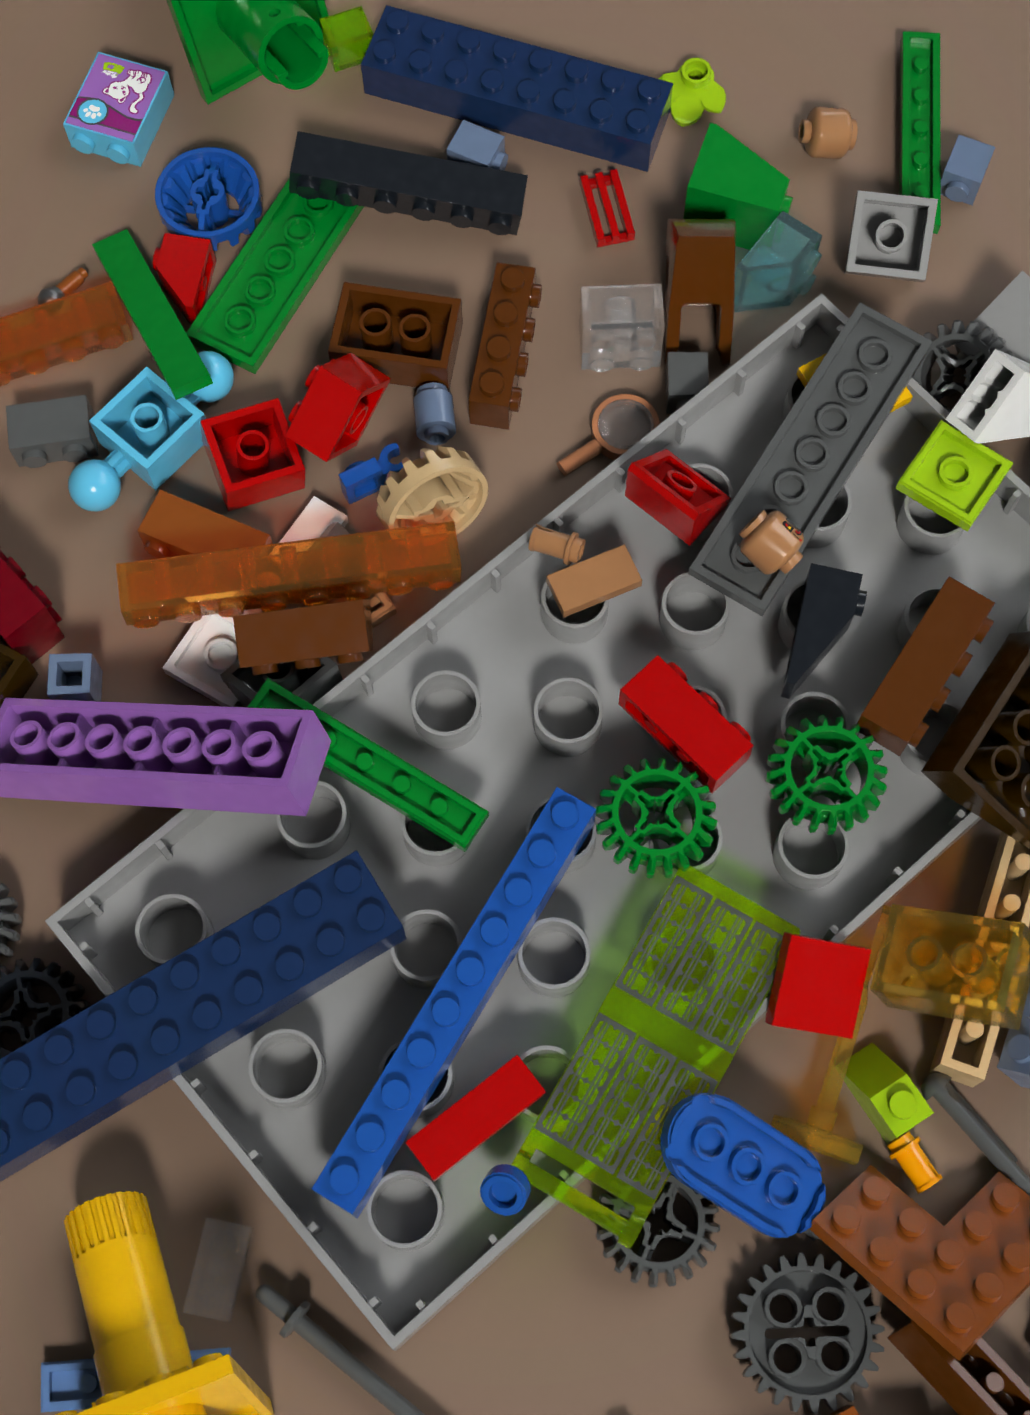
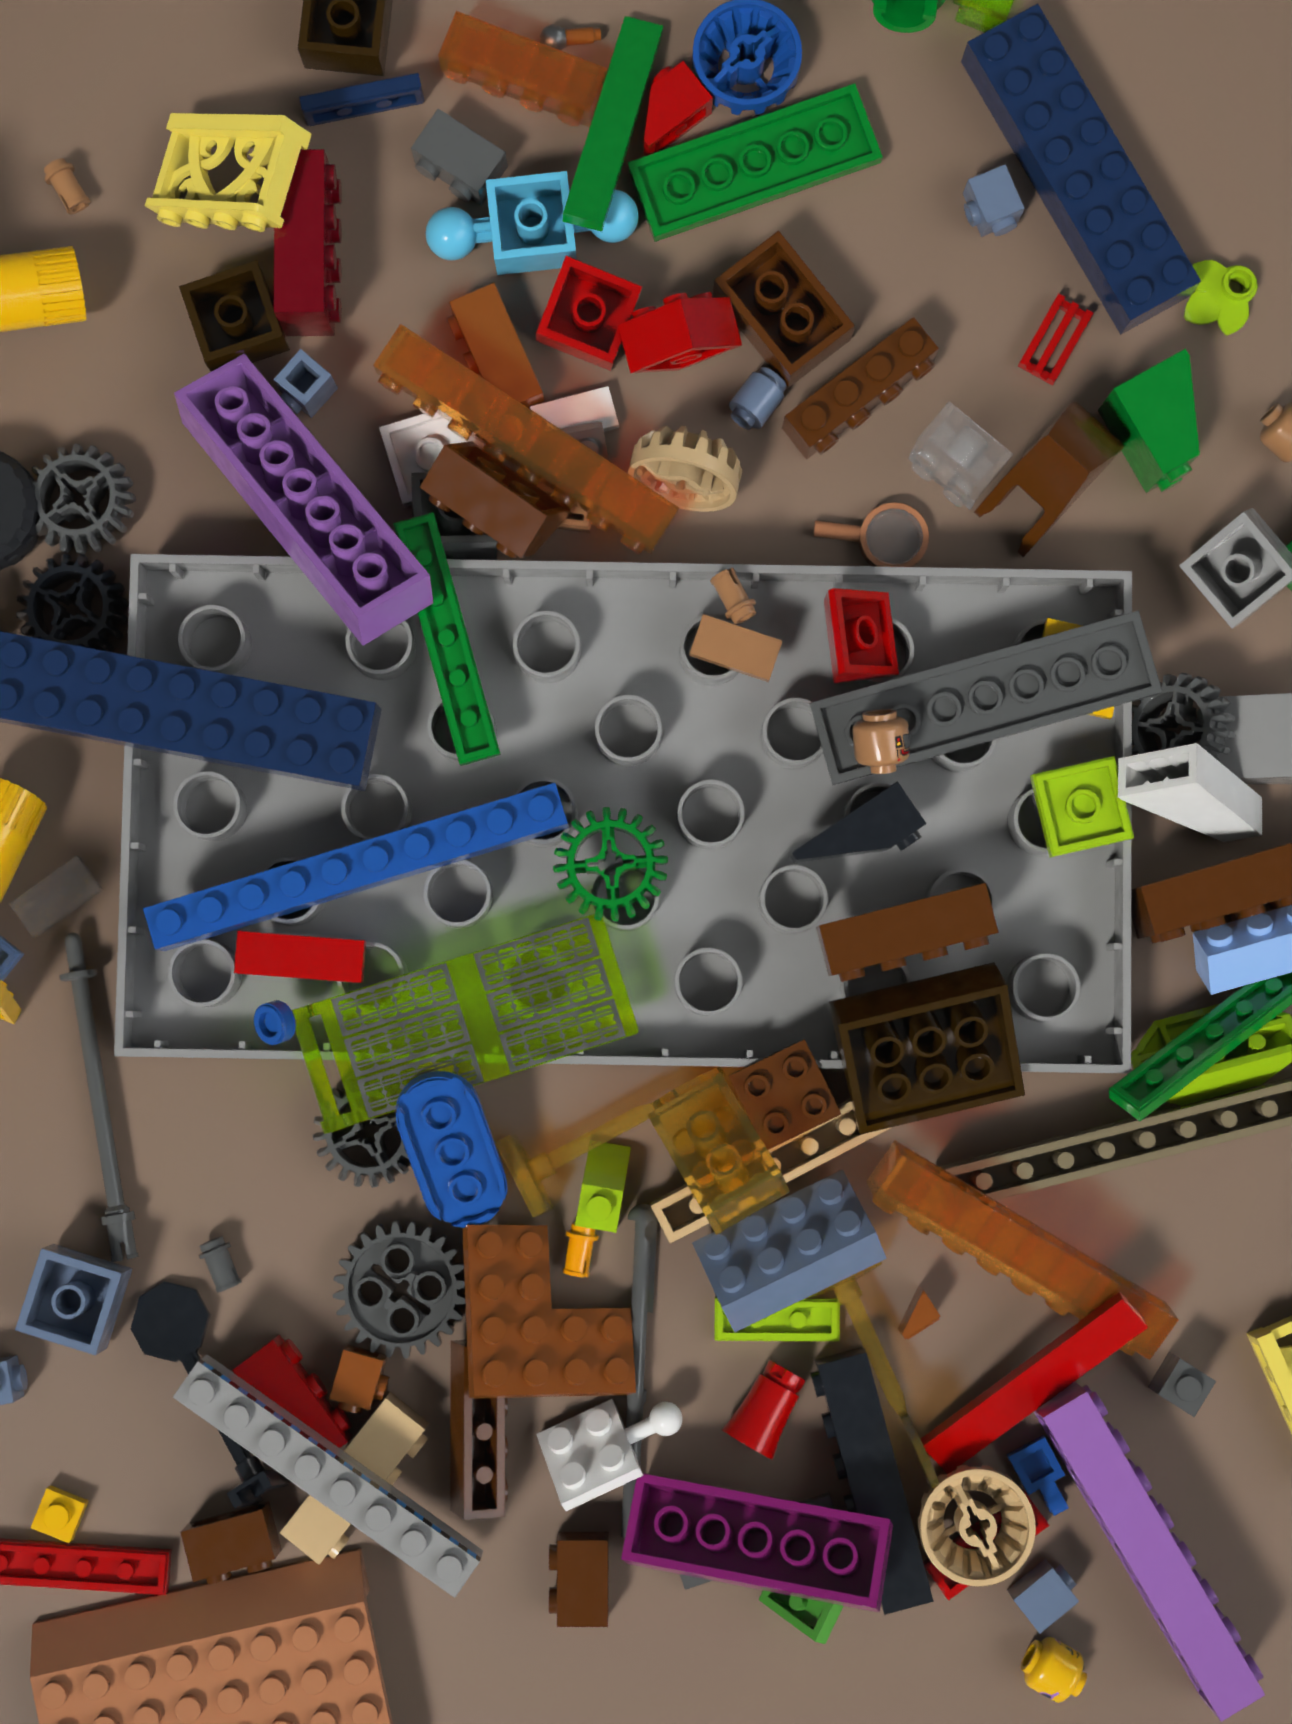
camera: 40 degrees right, 15 degrees up
(366, 477) = (659, 406): blue plate -> none
(407, 183) = (909, 183): black brick -> none
(684, 377) = (971, 543): dark grey brick -> none
(686, 722) = (698, 815): red brick -> none
(777, 266) = (1129, 513): clear light blue slope -> none
(806, 744) = (762, 907): green gear -> none
(817, 985) = (615, 1079): red tile -> none
(955, 873) = (785, 1094): none -> reddish brown hinge

